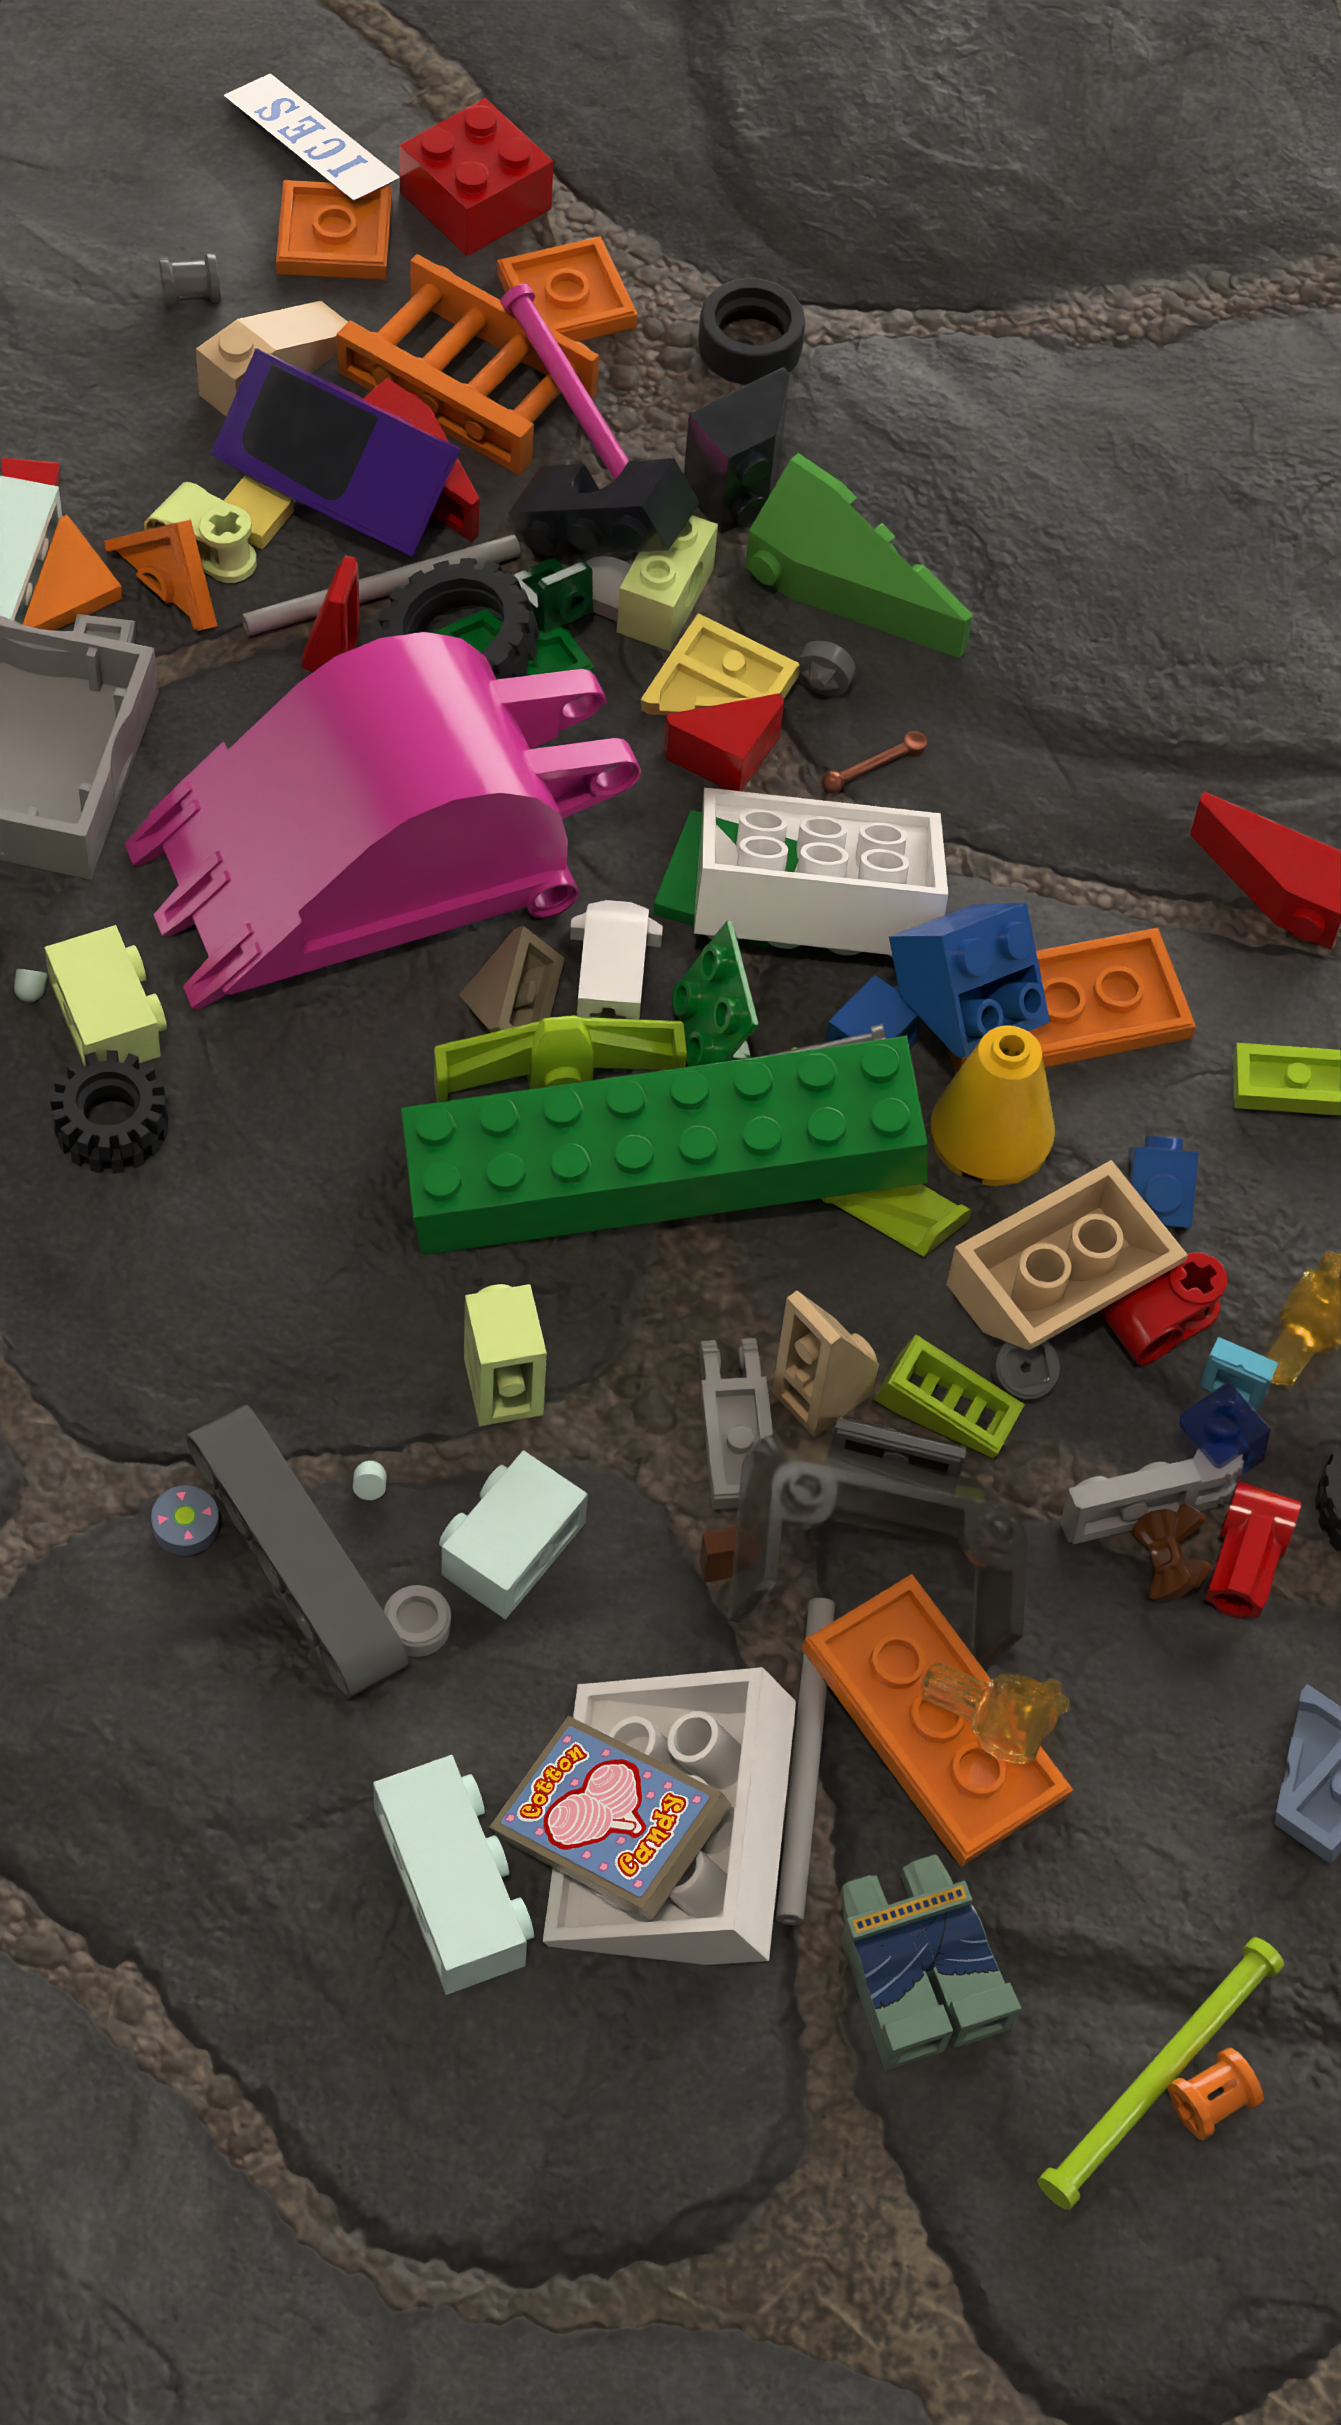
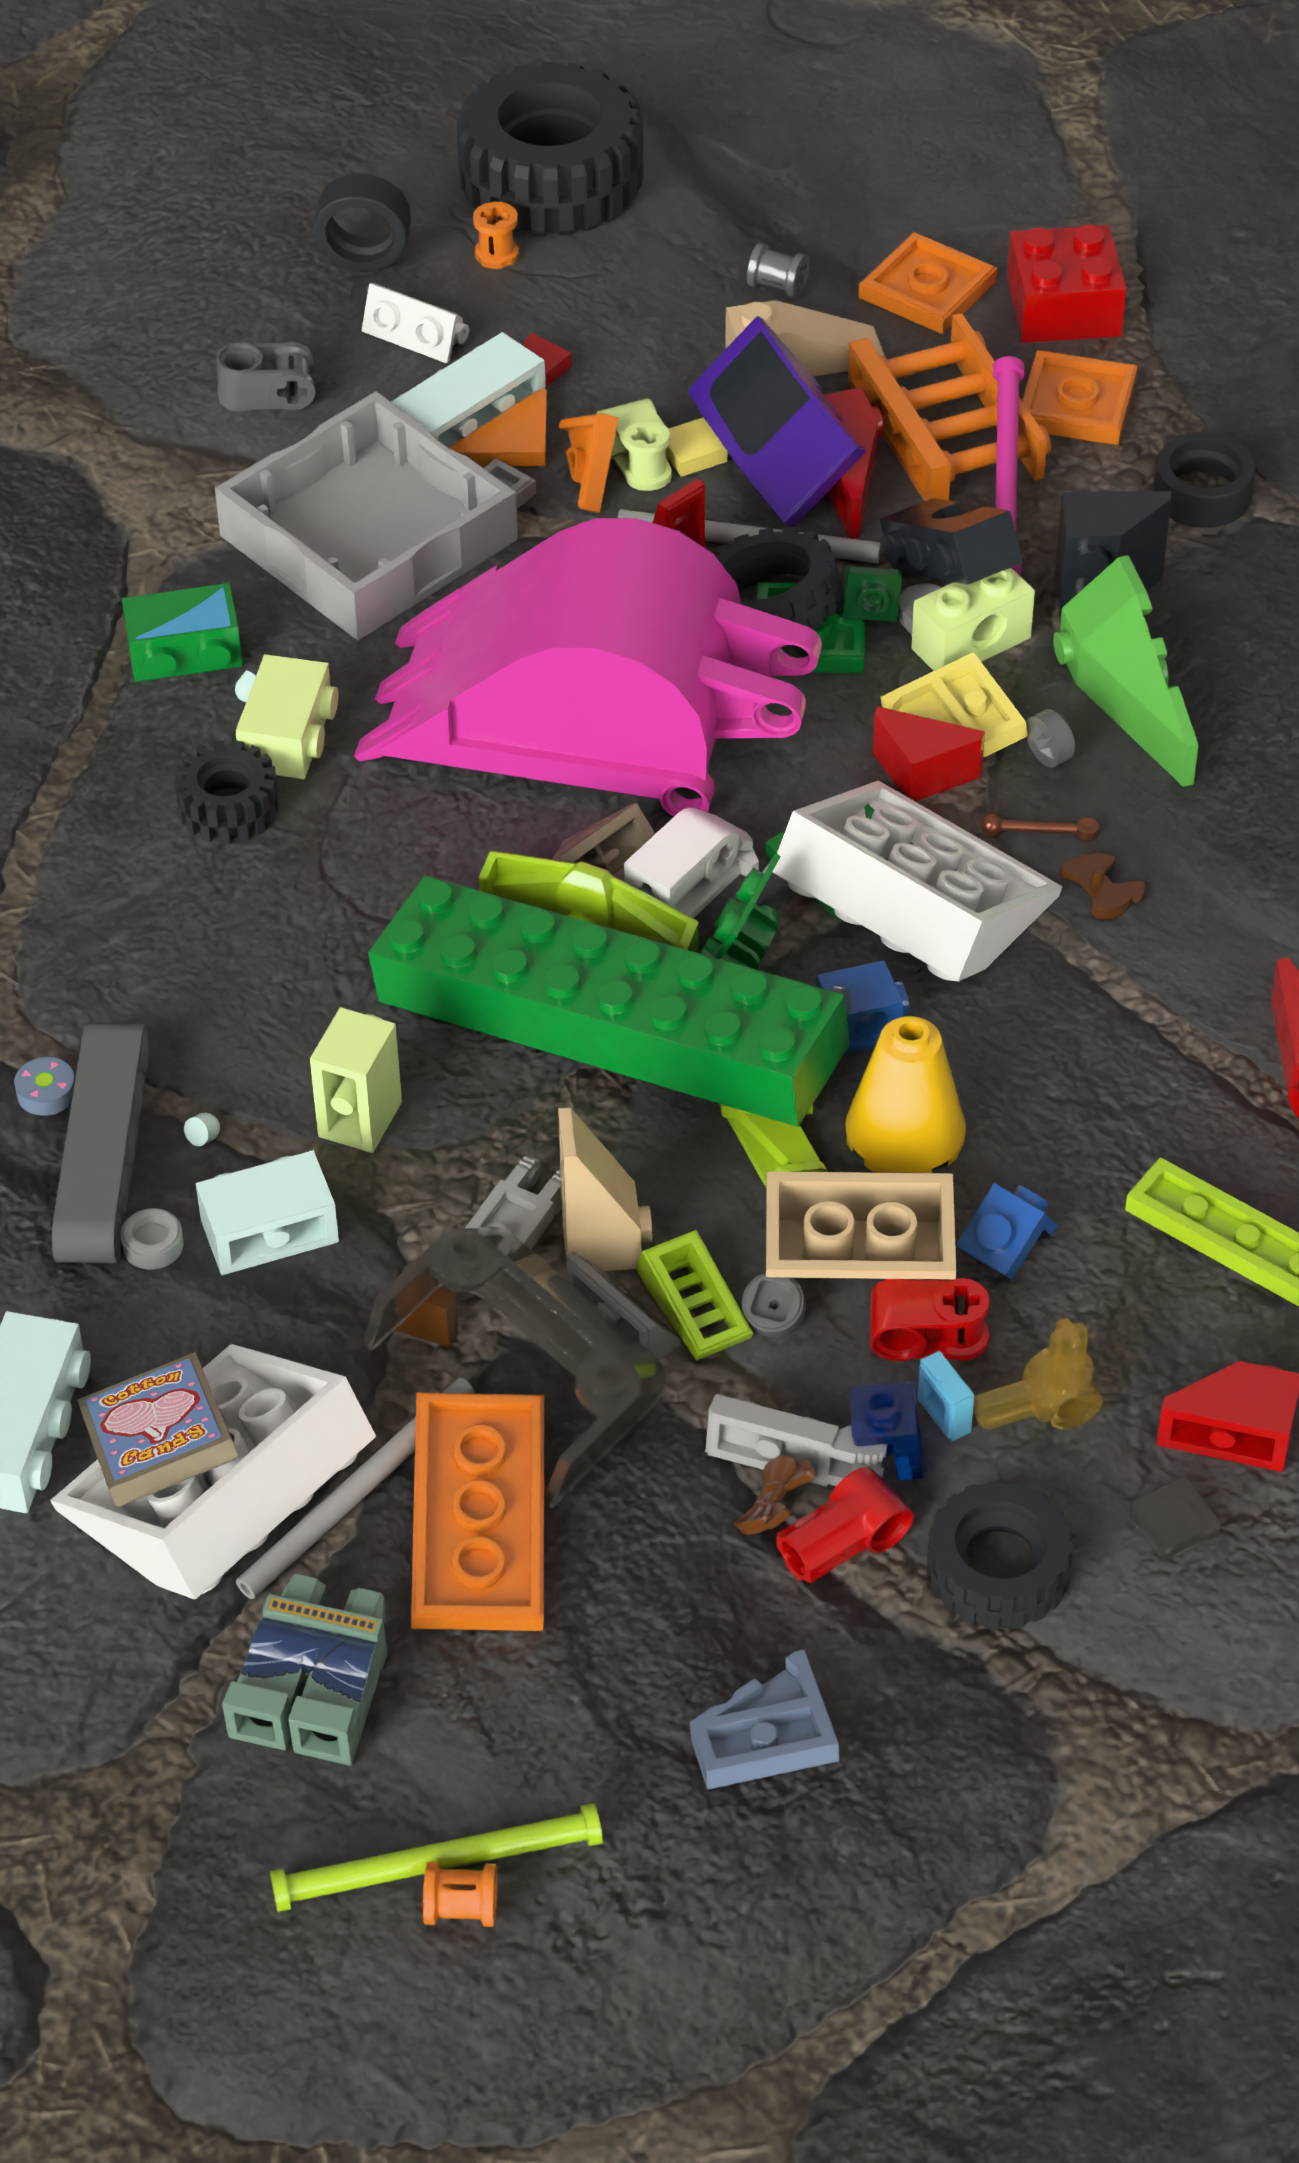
camera: 40 degrees right, 10 degrees down
(312, 137) = (964, 212): white sticker -> none
(972, 973) = (965, 989): blue slope -> none
(986, 803) = (1107, 898): none -> reddish brown piece
(1006, 1713) = (525, 1522): clear yellow axle -> none
(1108, 999) = (1051, 1067): orange tile -> none

